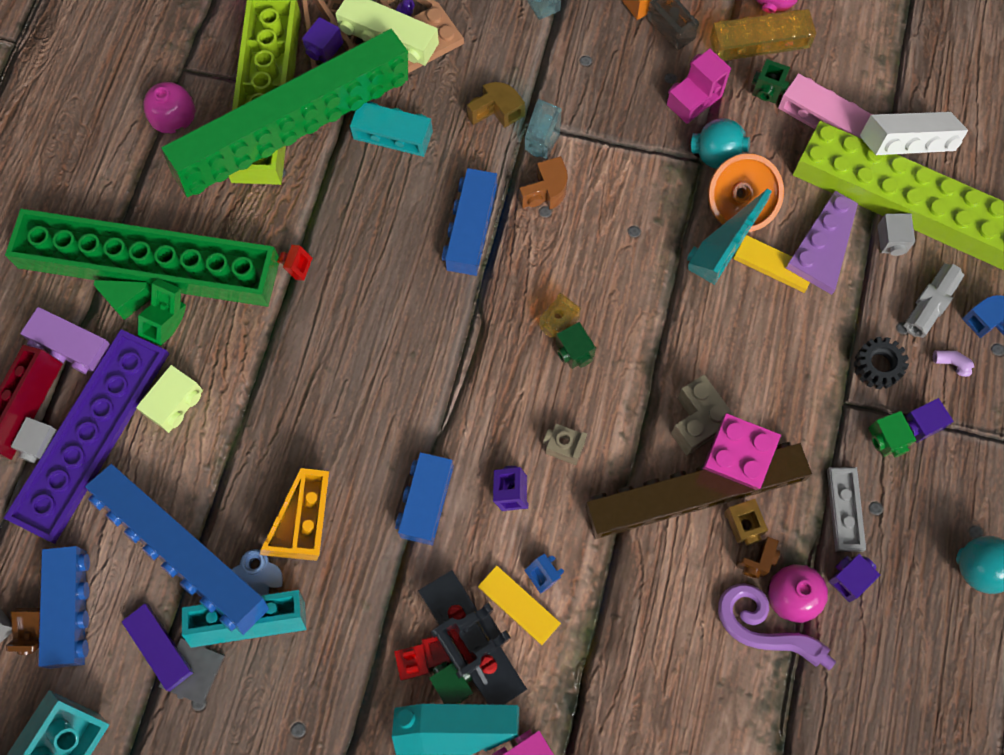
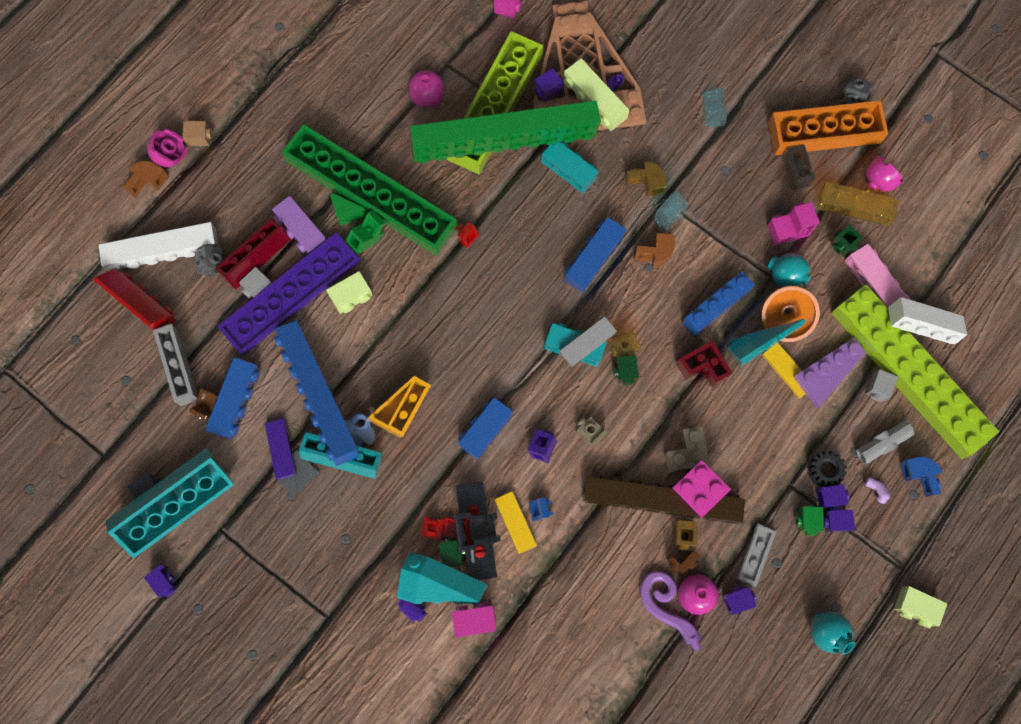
camera: 20 degrees right, 5 degrees up
(496, 342) = (561, 336): none -> teal brick
(511, 330) = (588, 341): none -> light grey tile
(652, 218) = (718, 304): none -> blue brick
(672, 292) = (705, 360): none -> dark red brick
(905, 394) = (832, 497): none -> dark purple brick

